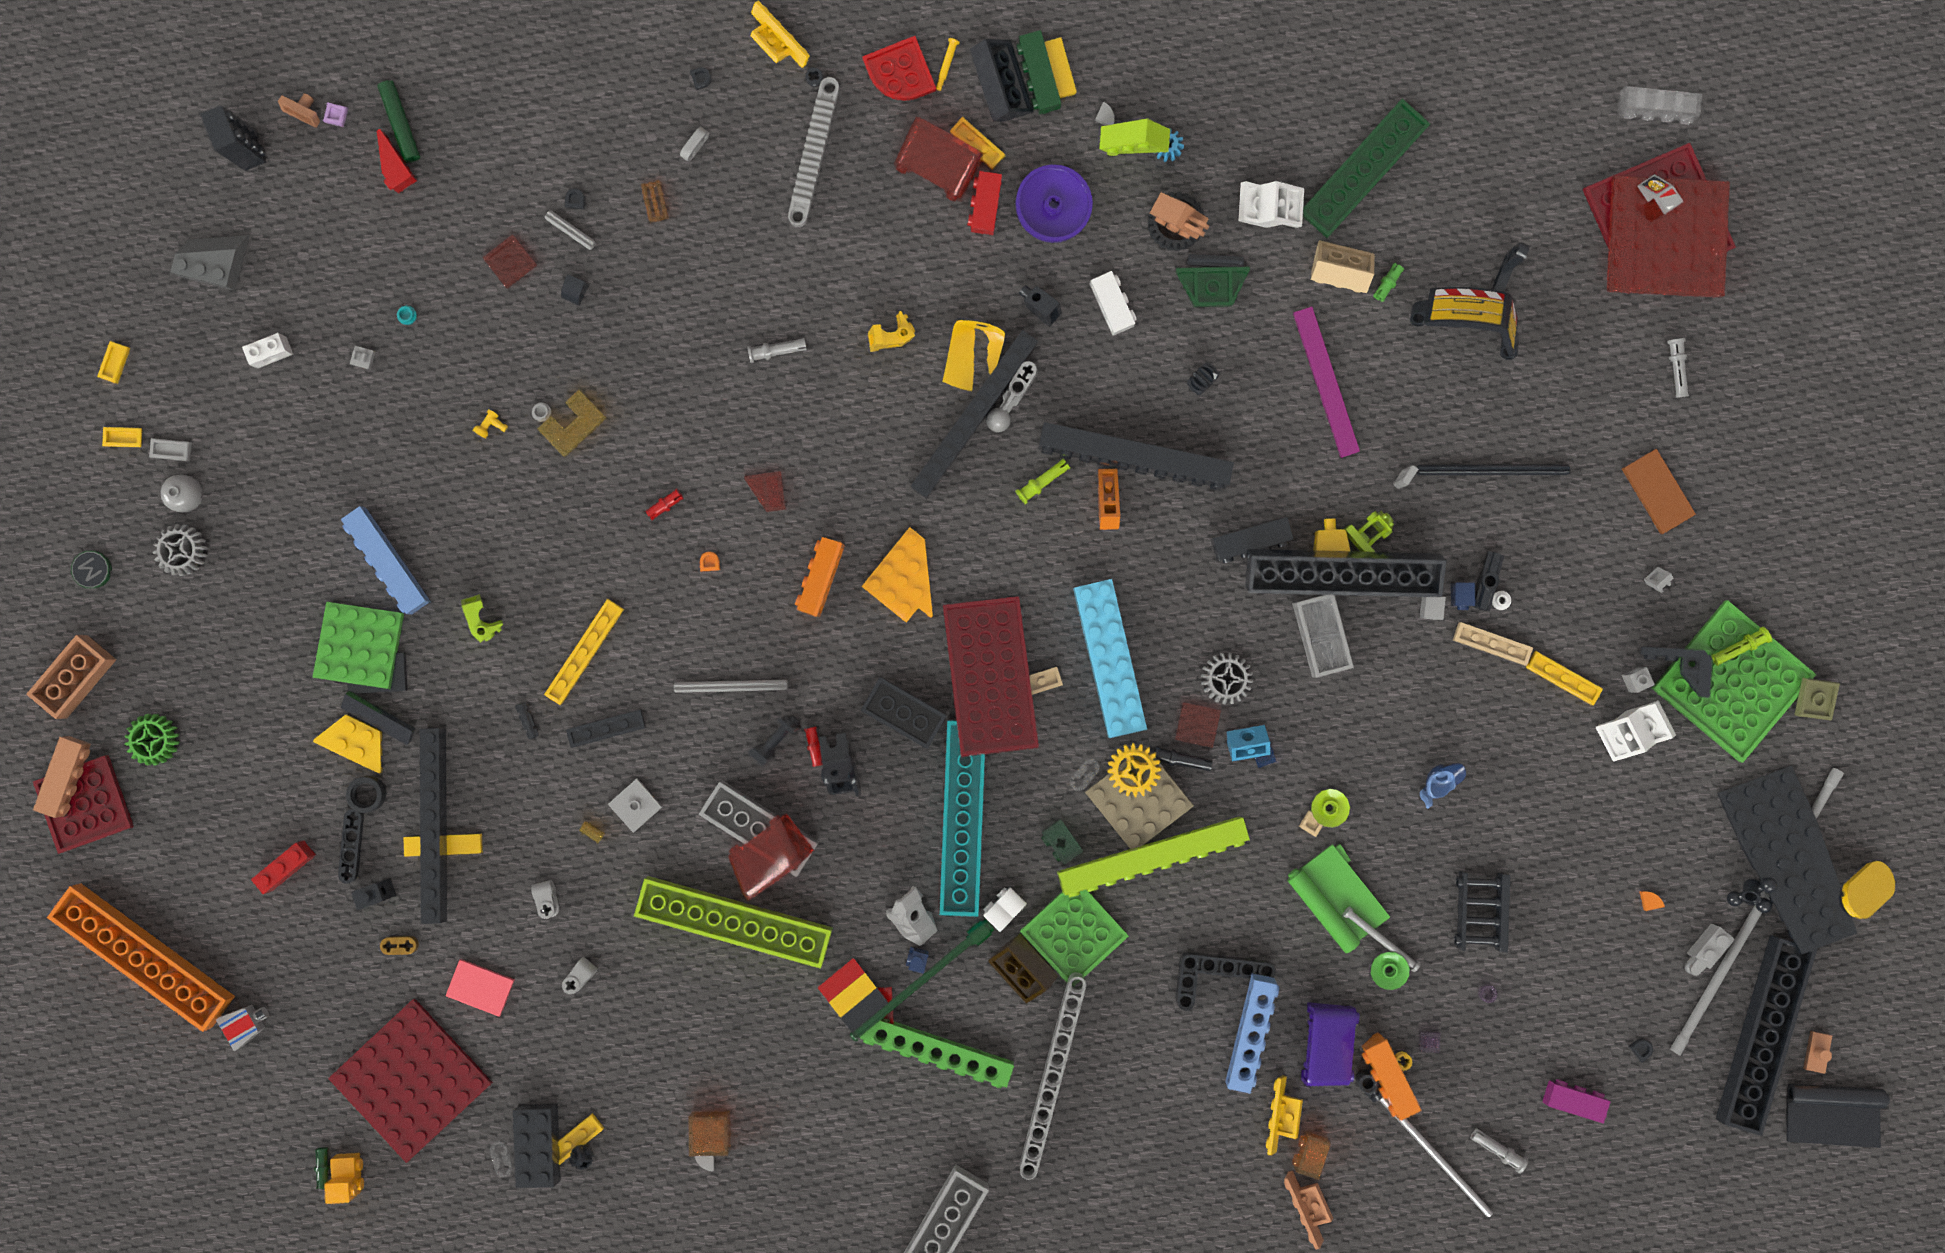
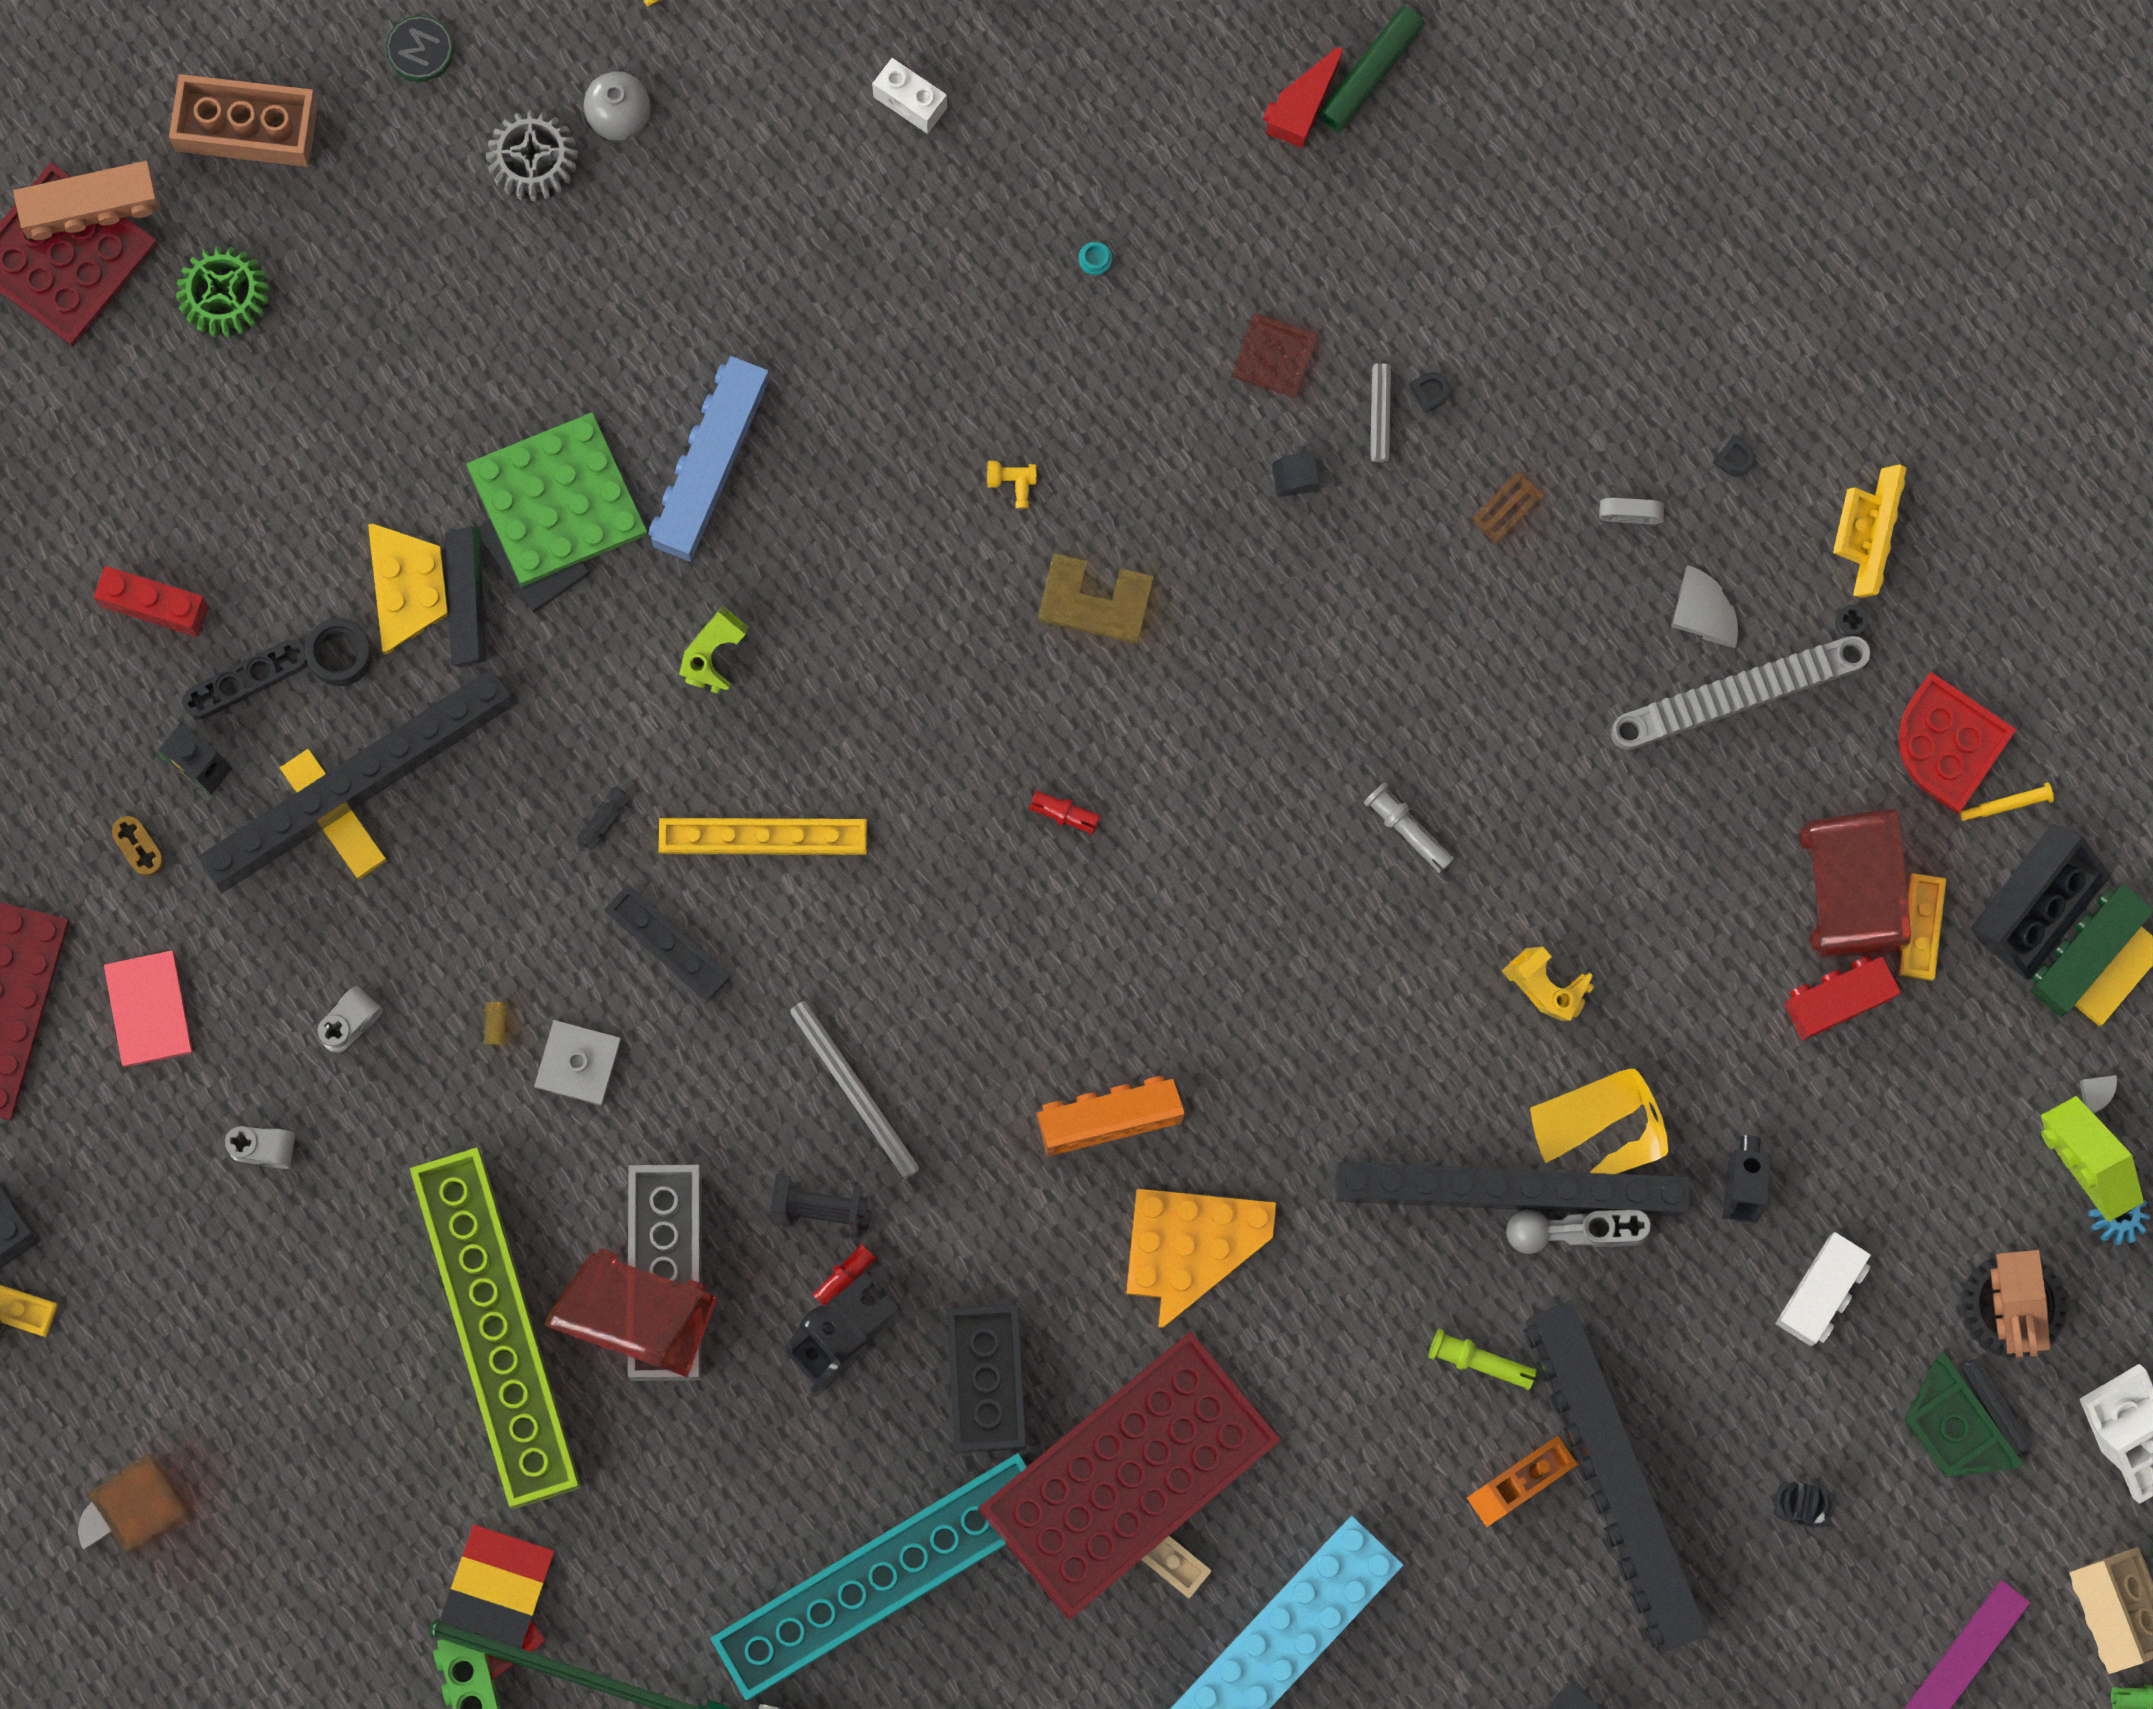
camera: 50 degrees right, 10 degrees down
(170, 449) = (670, 49): light grey tile -> none
(362, 357) = (989, 235): light grey tile -> none
(541, 412) = (1082, 543): light grey plate -> none
(709, 562) = (1021, 935): orange tile -> none
(763, 141) = (1705, 609): none -> light grey brick
(768, 490) = (1189, 953): clear red wing -> none
(914, 930) = (663, 1622): light grey piece -> none
(917, 959) = (615, 1651): dark blue brick -> none
(1053, 203) = (1911, 1100): dark purple dish -> none

